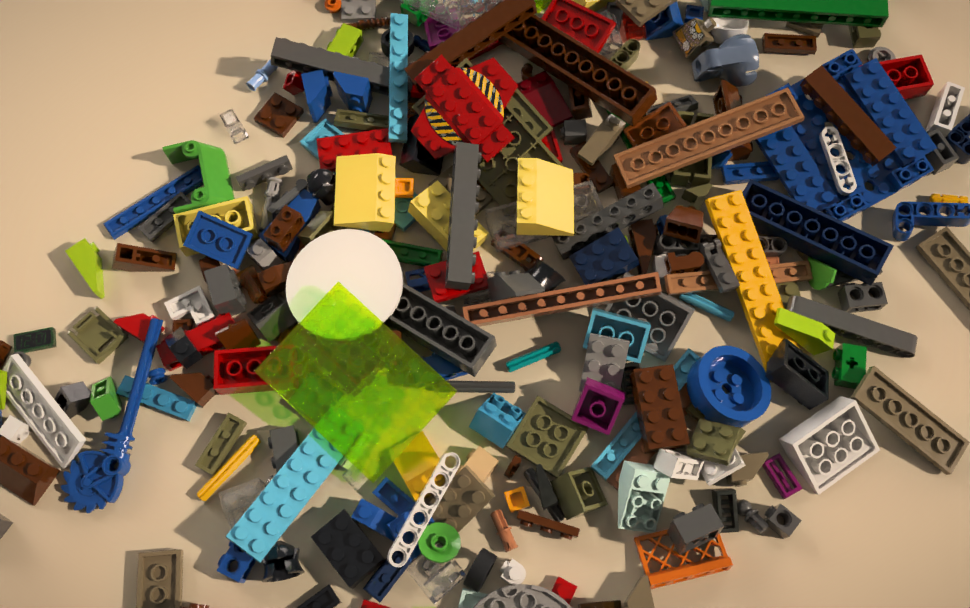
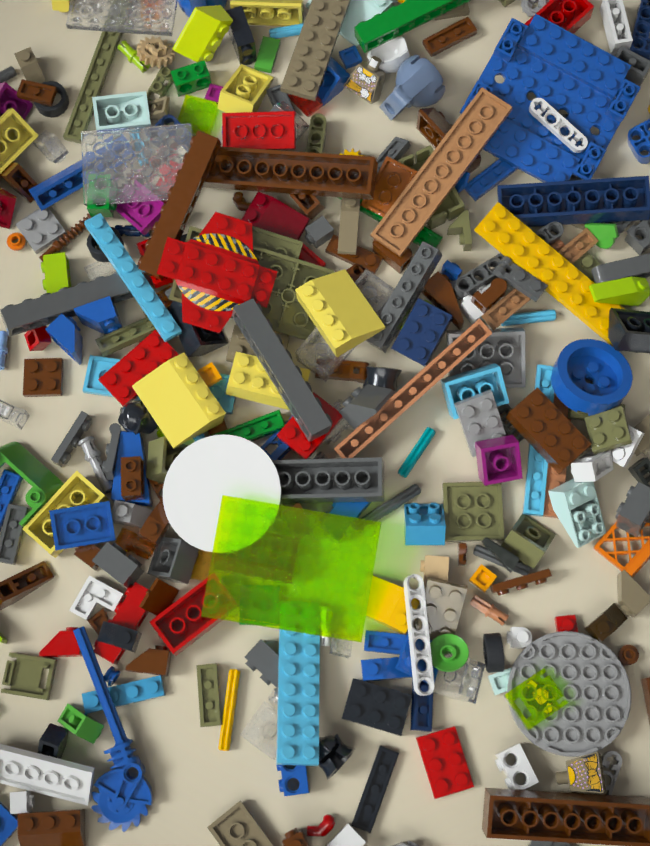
camera: 30 degrees left, 5 degrees up
(684, 223) = (470, 259): reddish brown torso -> none
(847, 116) = (543, 81): reddish brown brick -> none

